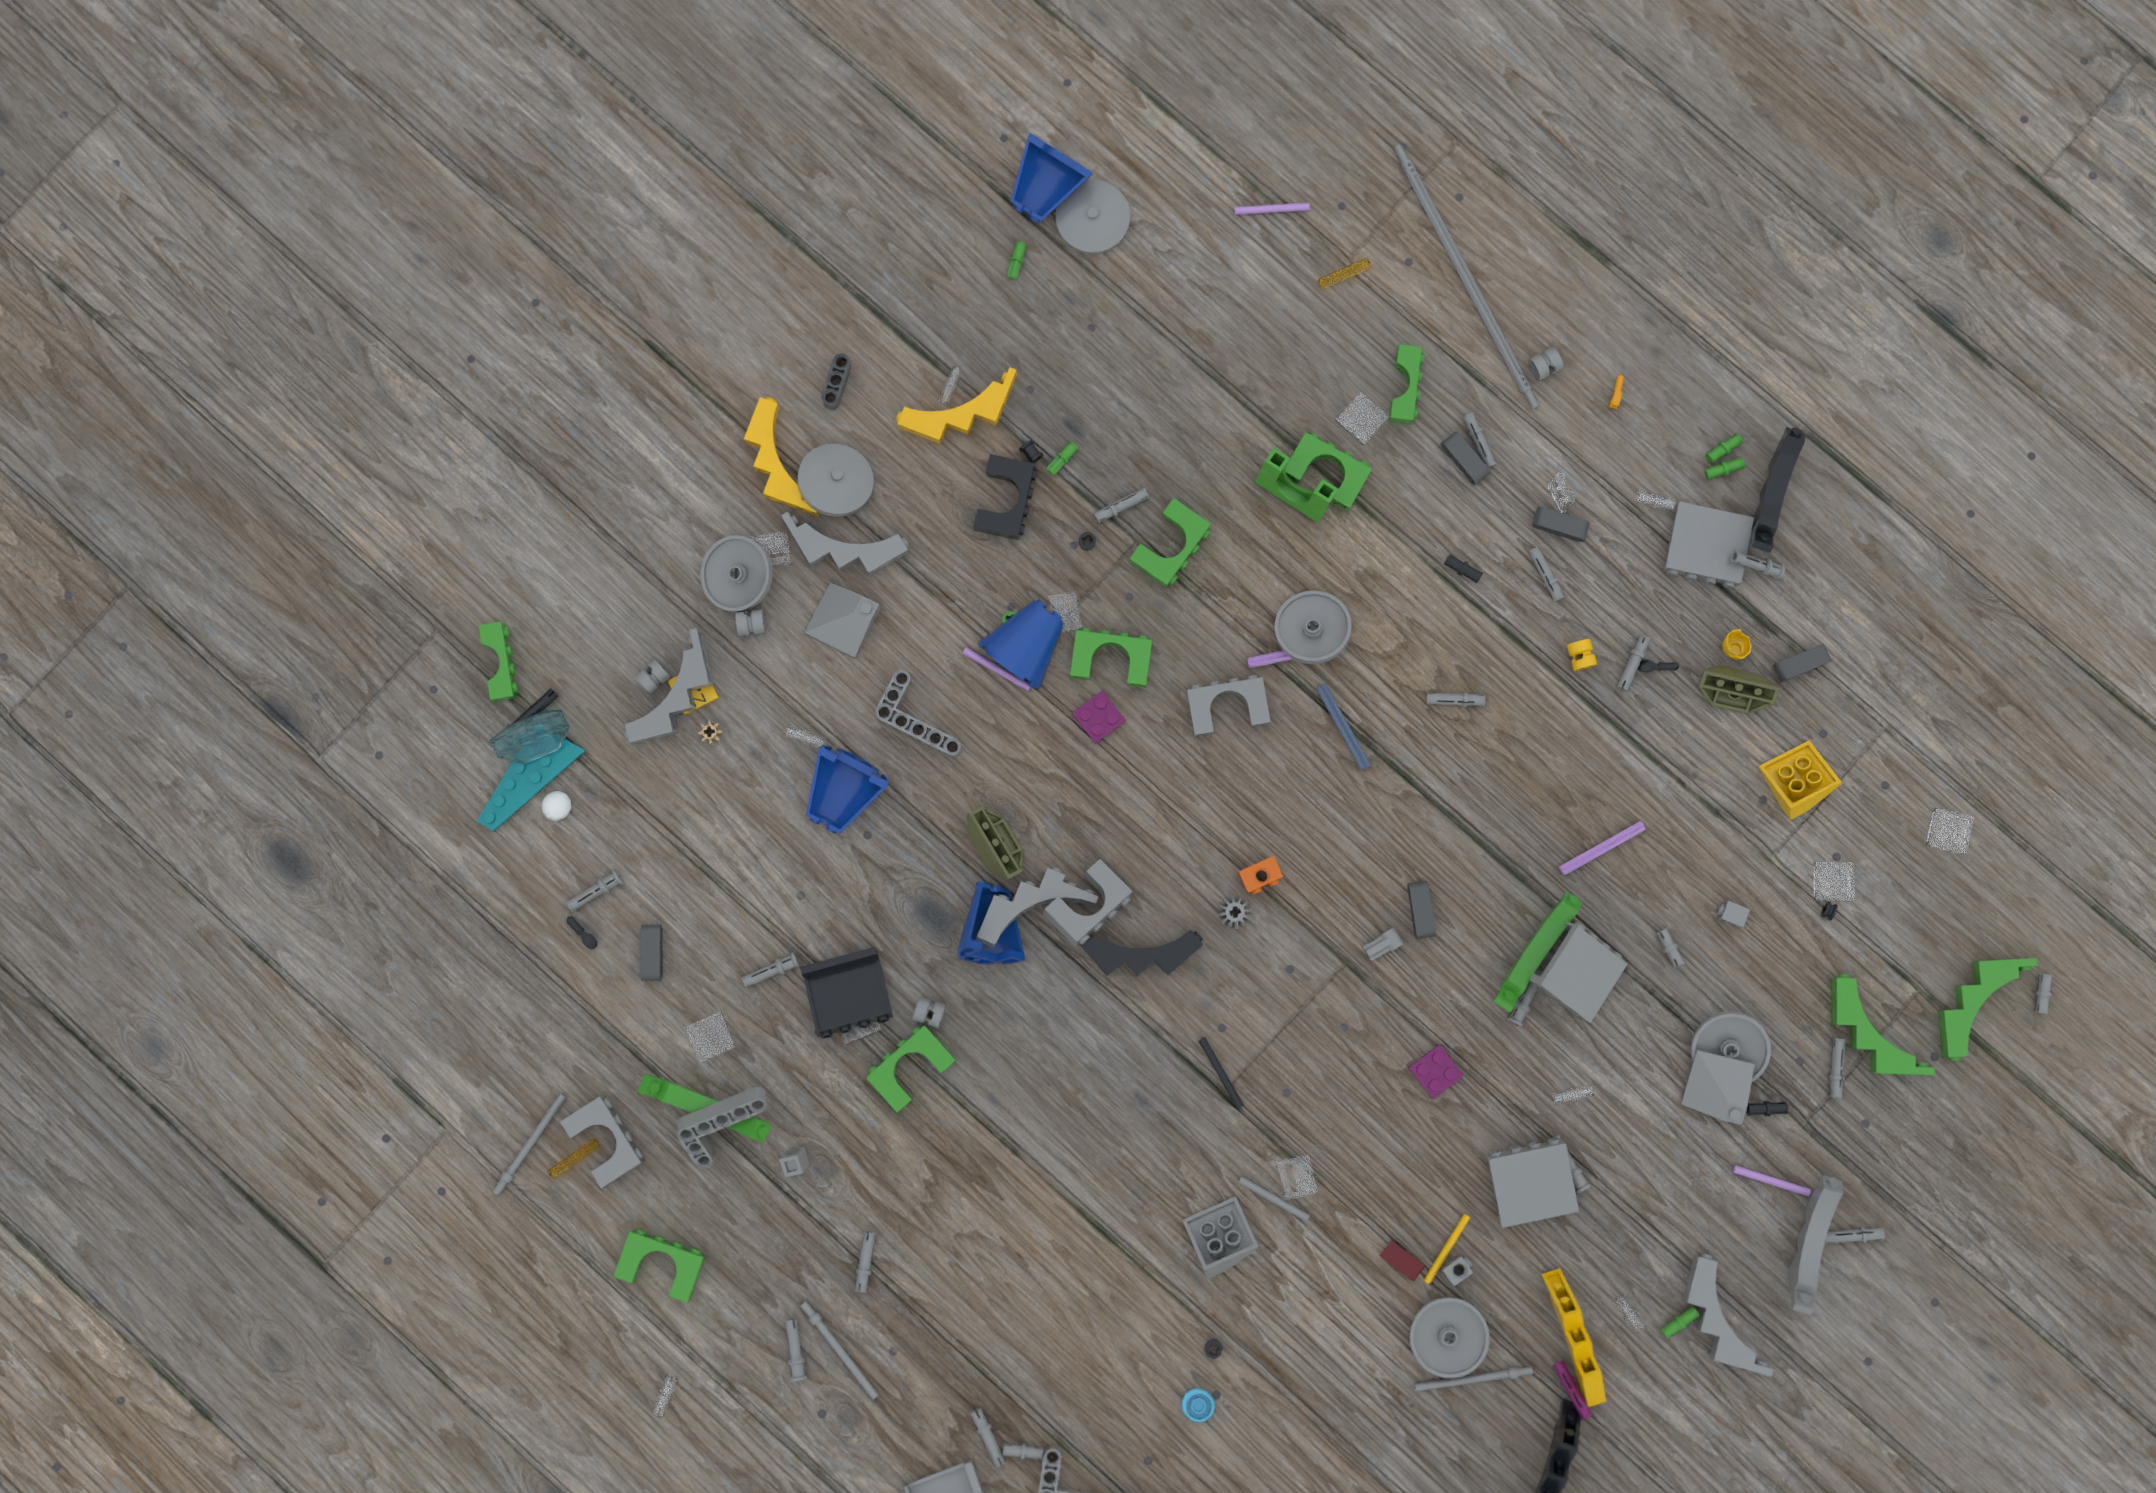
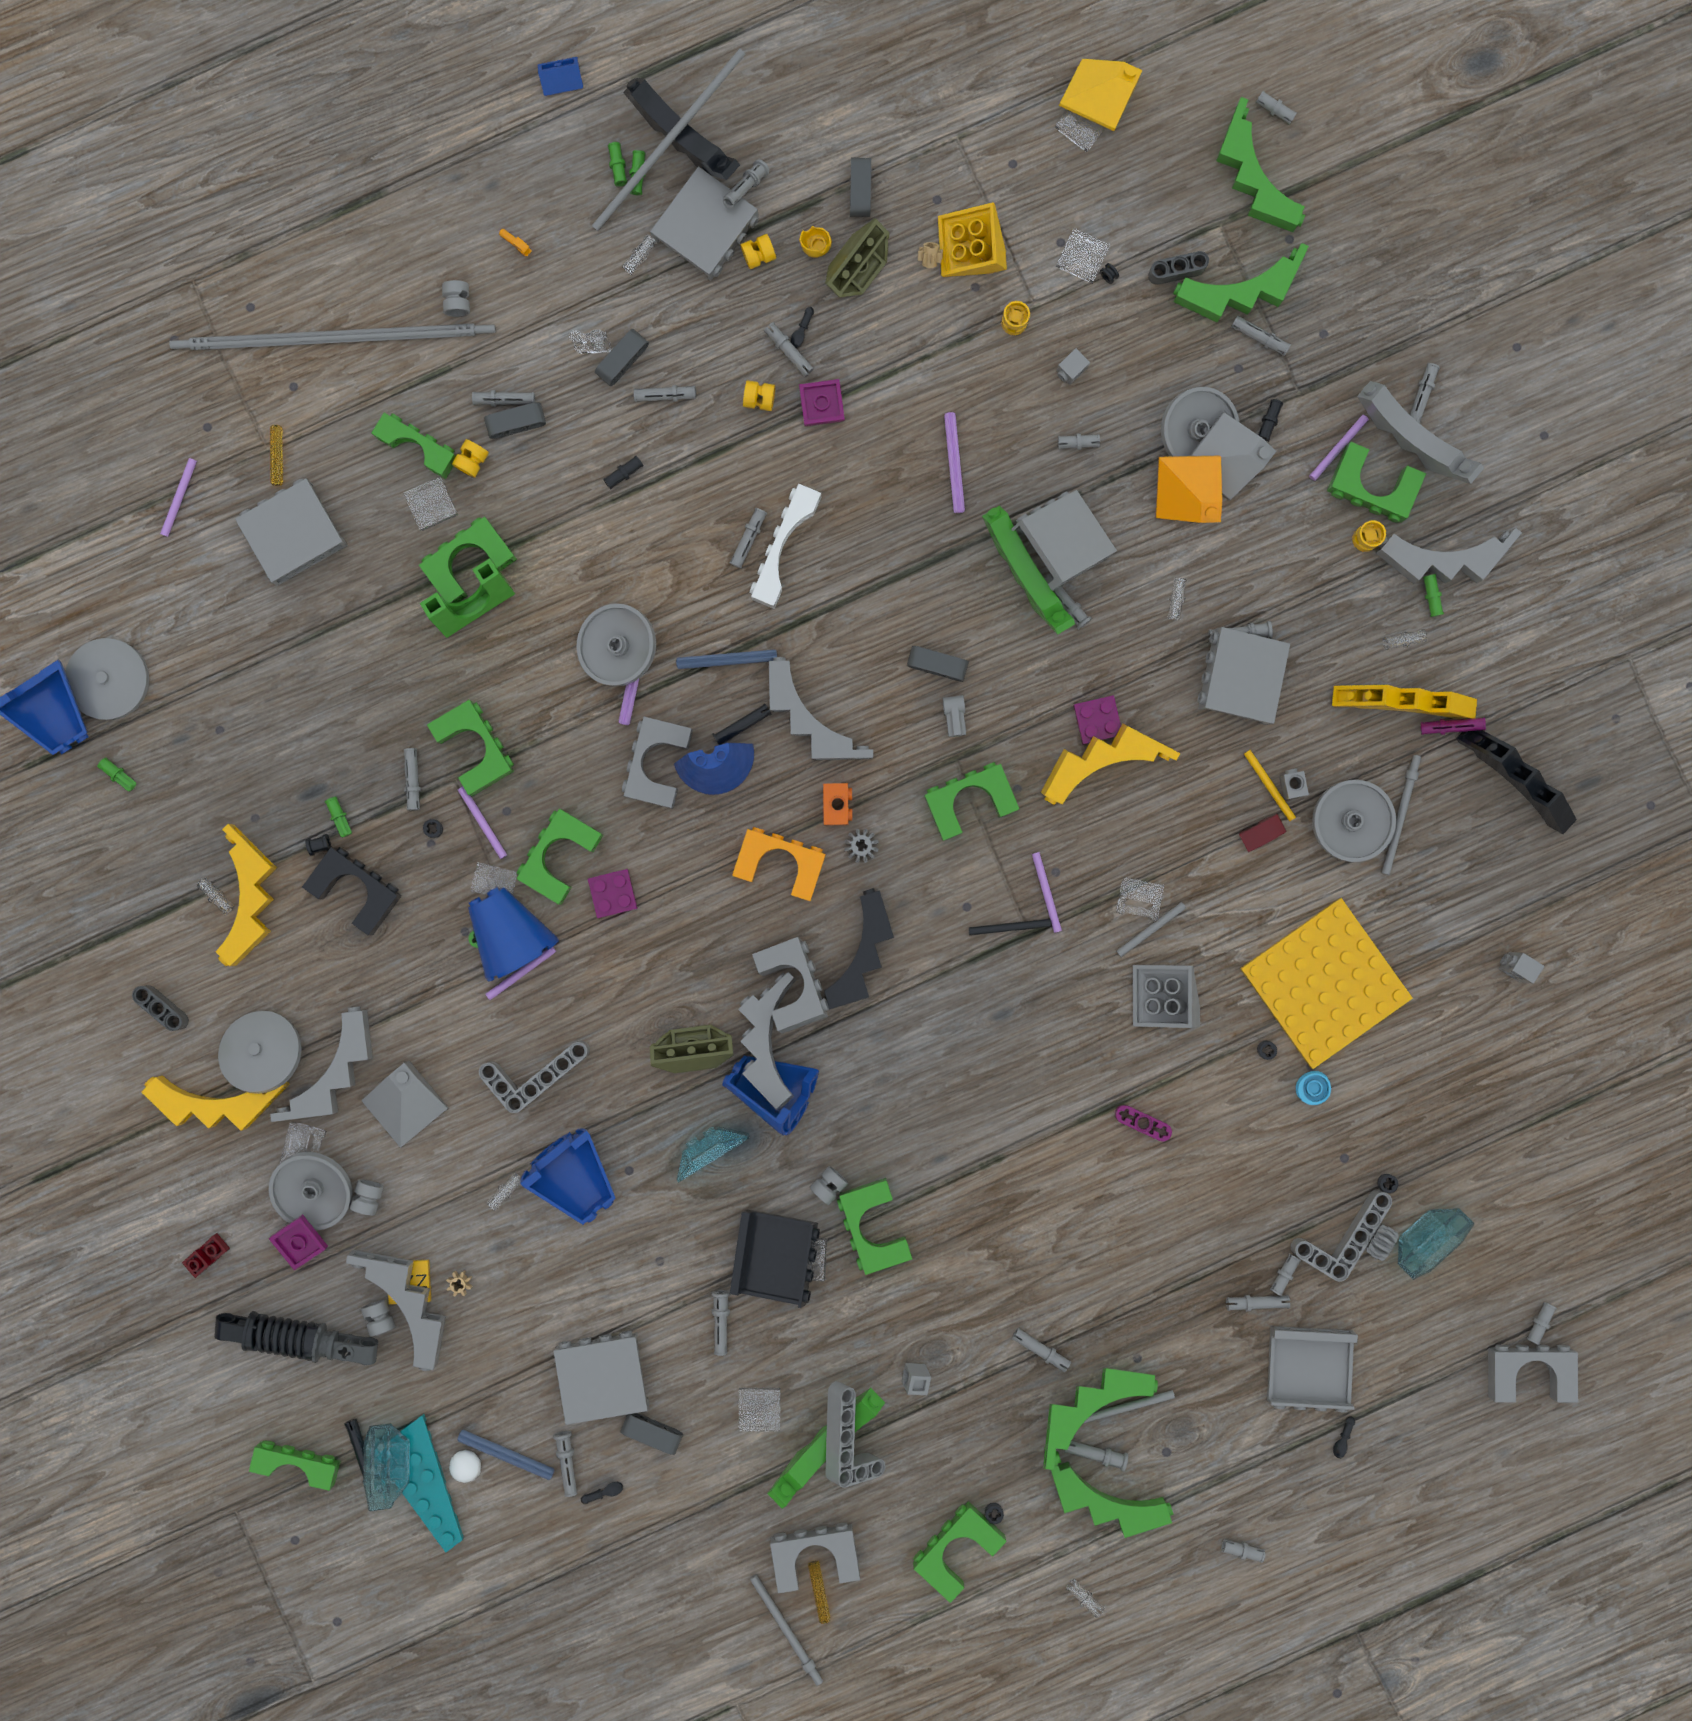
camera: 70 degrees left, 5 degrees up
(580, 836) = (505, 1454): none -> sand blue axle
(606, 614) = (294, 1338): none -> black piece
(643, 510) = (206, 1255): none -> dark red slope
(680, 888) = (600, 1378): none -> light grey panel
(688, 582) = (298, 1242): none -> magenta plate
(707, 1277) = (999, 1517): none -> black bush
(754, 1405) = (1133, 1515): none -> bright green arch
(815, 1309) = (1066, 1420): none -> bright green arch
(915, 894) = (707, 1149): none -> clear light blue wedge
(1096, 1250) = (1154, 1134): none -> magenta beam
(1109, 582) = (482, 823): none -> lavender bar
(1195, 822) = (758, 844): none -> light orange arch
(1244, 760) = (716, 771): none -> blue cone
(1265, 1092) = (1046, 892): none -> lavender bar
(1285, 313) = (290, 532): none -> light grey panel
(1292, 764) = (741, 724): none -> black pin
(1295, 1376) = (1326, 983): none -> yellow plate
(1309, 842) = (824, 742): none -> light grey arch
(1341, 1000) = (990, 780): none -> bright green arch
(1415, 435) = (470, 458): none -> yellow wheel
(1424, 1106) = (1126, 746): none -> yellow arch
(1502, 733) = (802, 507): none -> white arch
(1601, 711) = (821, 402): none -> magenta plate
(1673, 1063) = (1189, 488): none -> light orange slope
(1705, 600) = (758, 251): none -> yellow wheel
(1705, 1241) = (1369, 536): none -> yellow wheel
(1742, 1252) = (1347, 485): none -> bright green arch
(1751, 845) = (1015, 318): none -> yellow wheel
(1764, 482) = (669, 139): none -> light grey piece
(1771, 748) = (930, 254): none -> tan gear
(1776, 367) = (560, 76): none -> blue panel
(1870, 974) = (1185, 261): none -> dark grey beam
(1984, 833) = (1101, 90): none -> yellow slope

